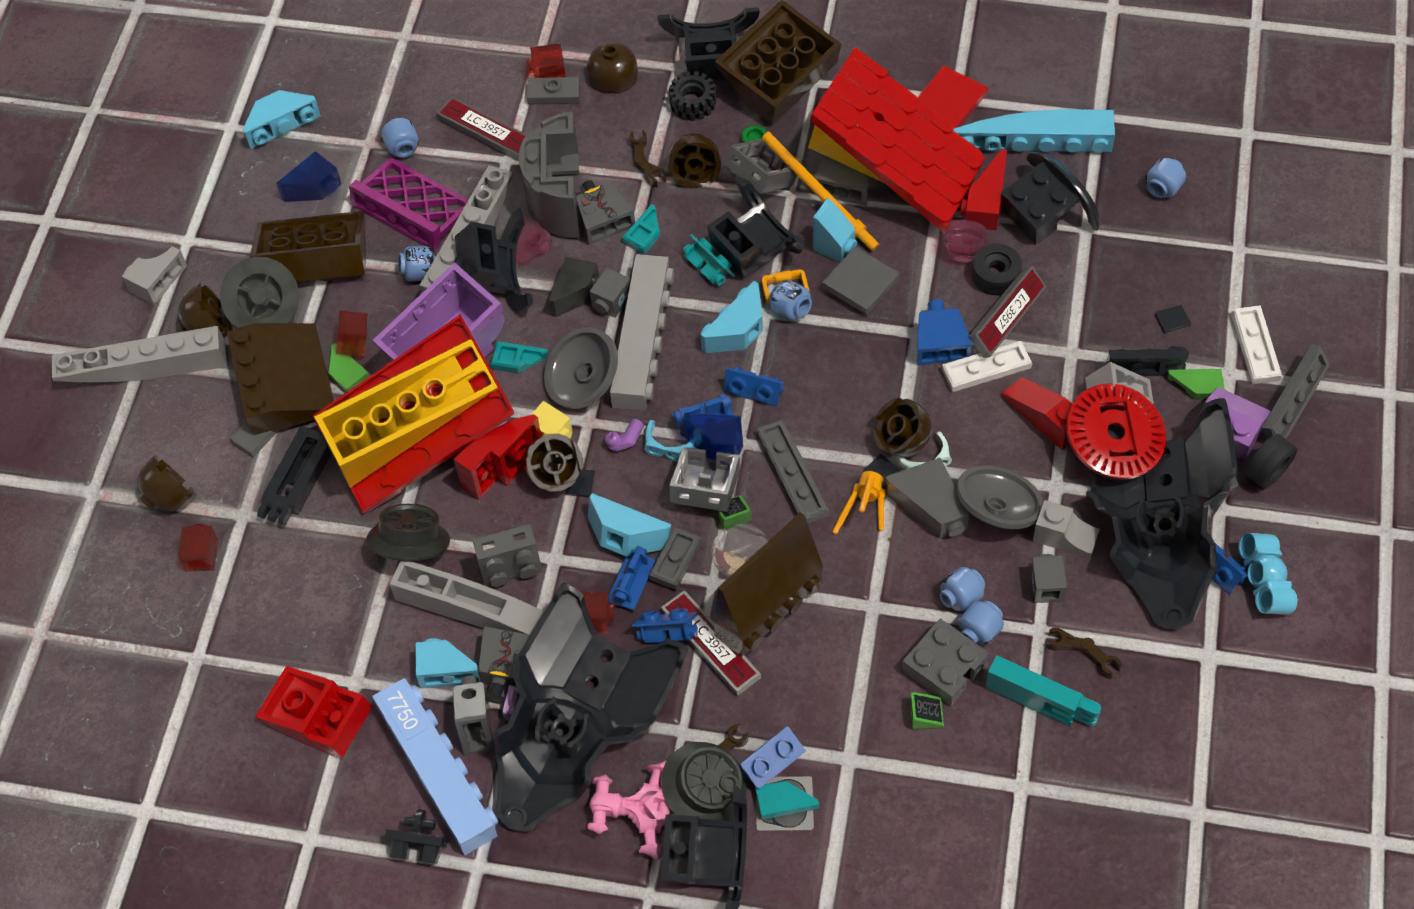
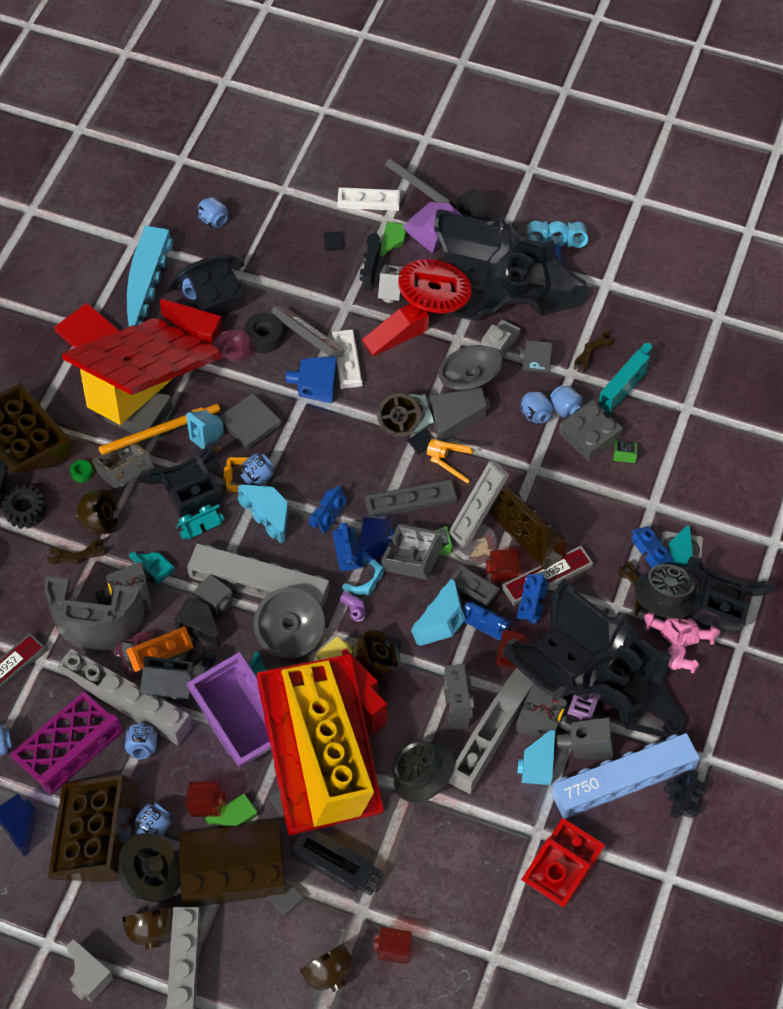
camera: 85 degrees left, 0 degrees up
(323, 294) = (153, 820): none -> medium blue head
(525, 251) = (160, 647): none -> orange plate
(706, 580) = (503, 565): none -> clear red brick
(766, 522) = (478, 503): none -> light grey tile

